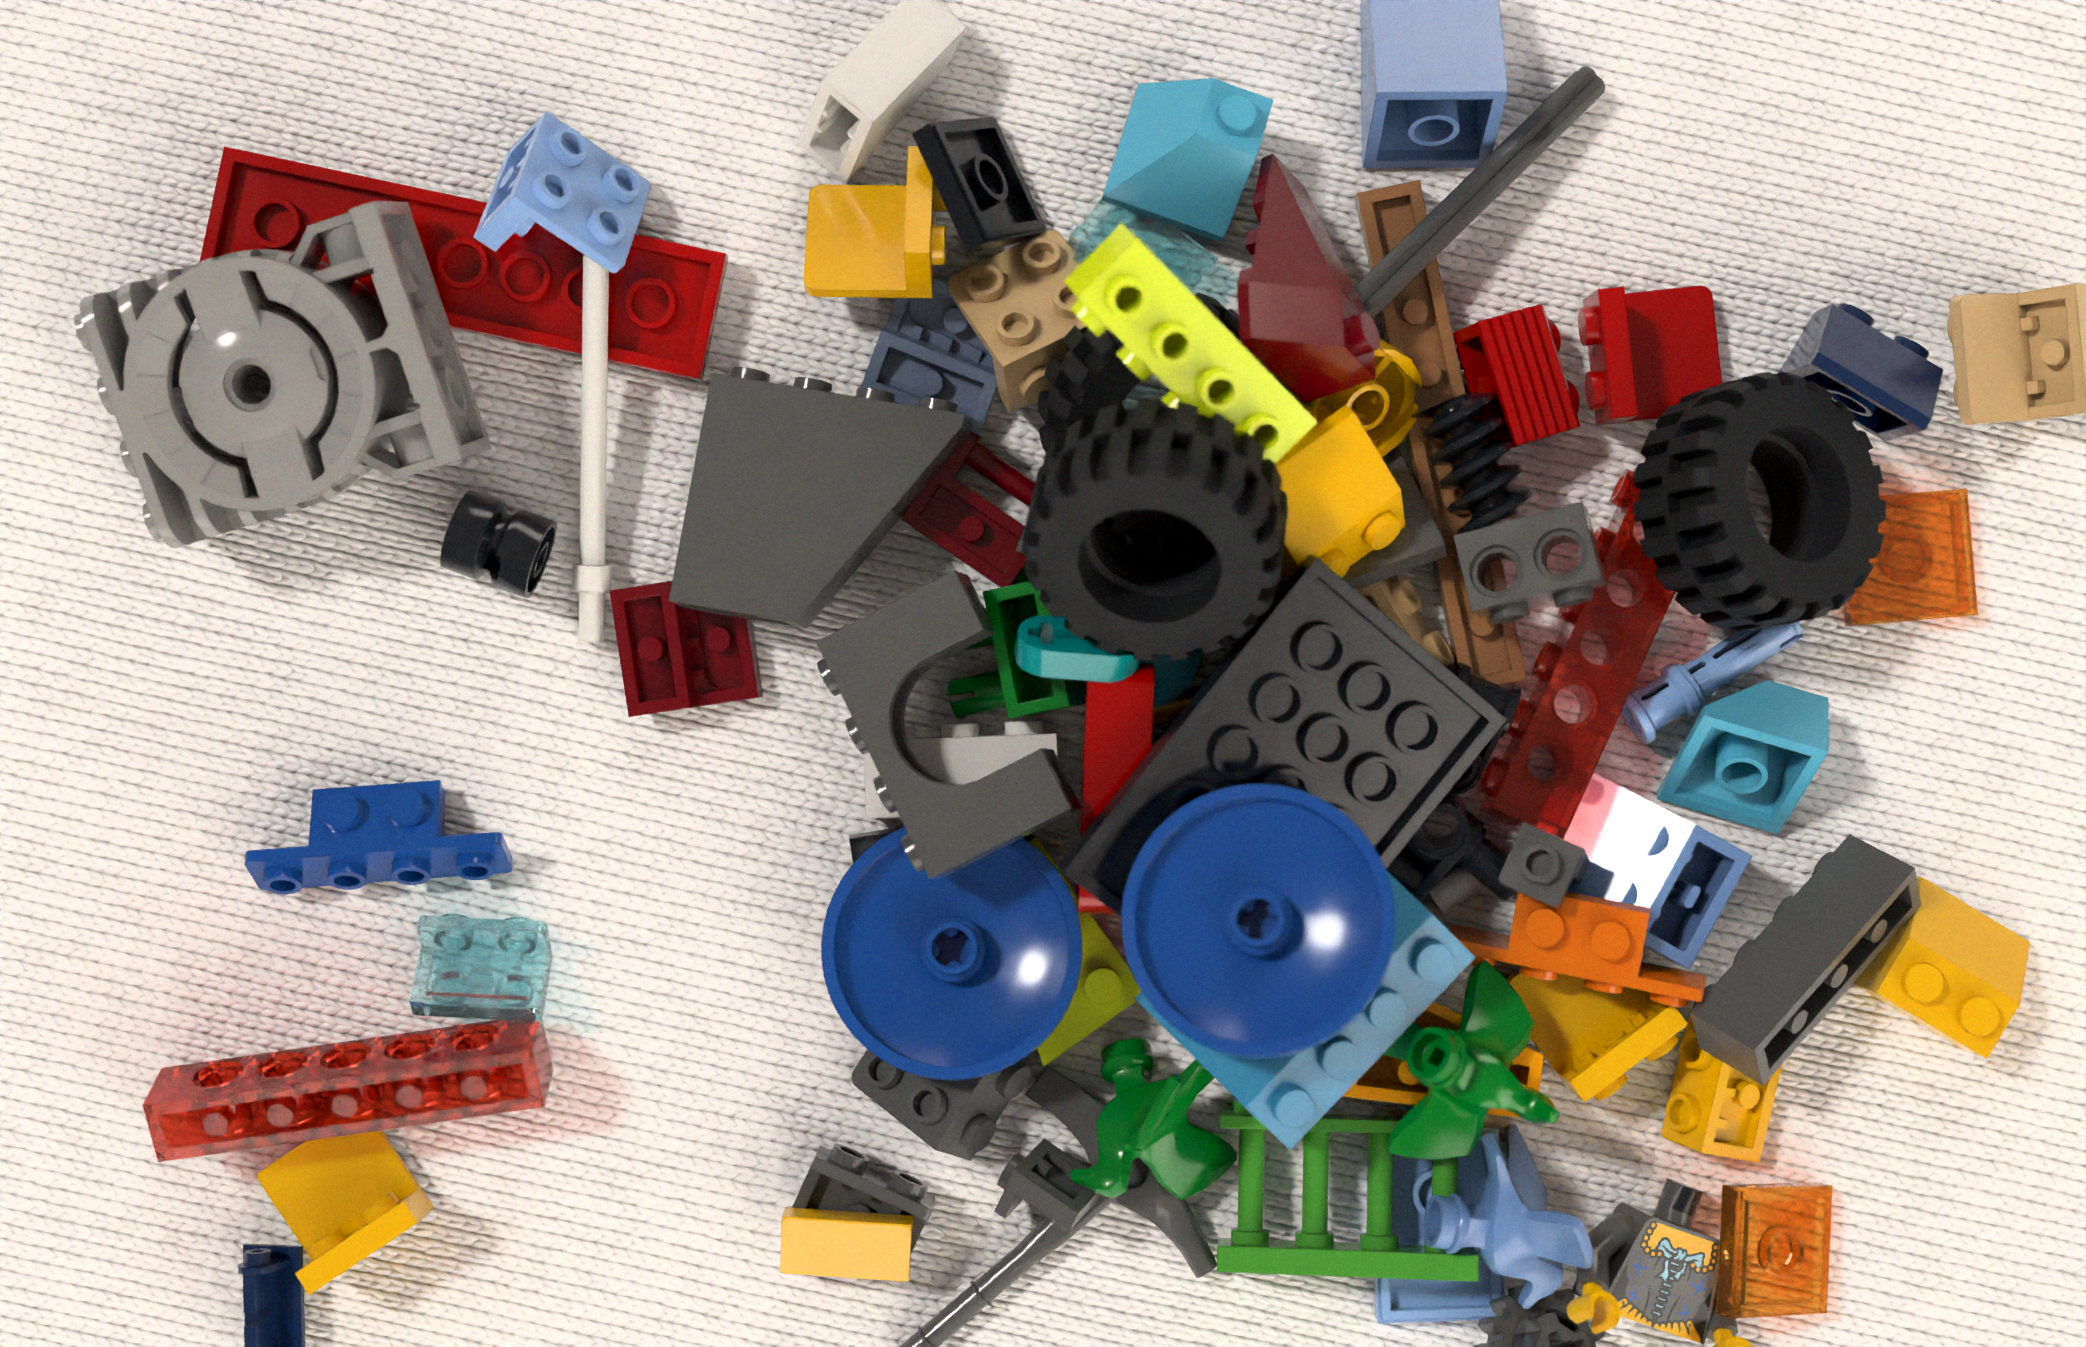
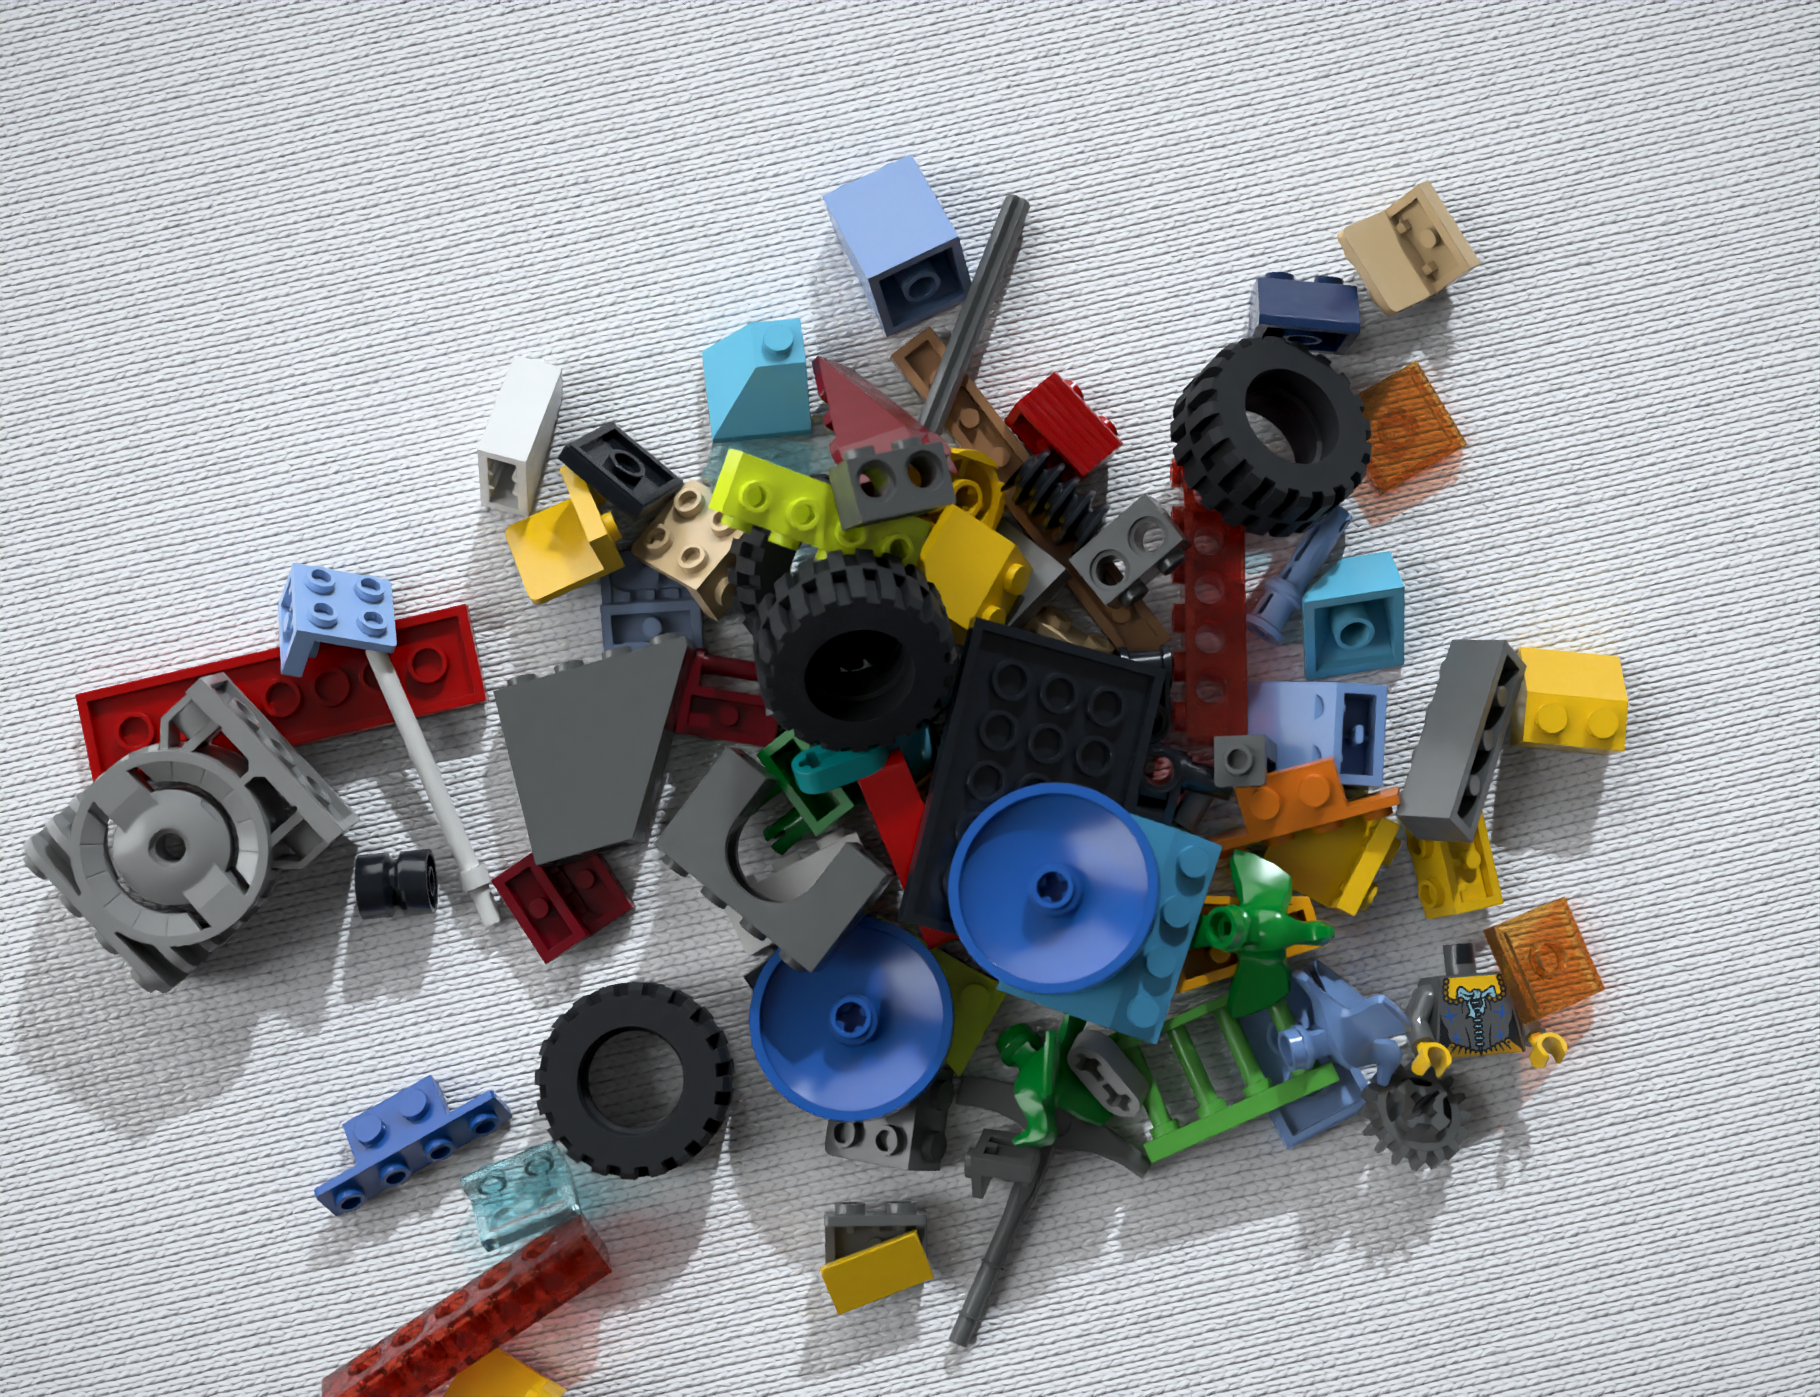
camera: 20 degrees left, 5 degrees down
(604, 955) = (566, 1091): none -> black tyre
(1215, 1147) = (1107, 1073): none -> light grey beam
(1293, 365) = (894, 492): none -> dark grey brick
(1647, 350) = (1144, 369): red bracket -> none

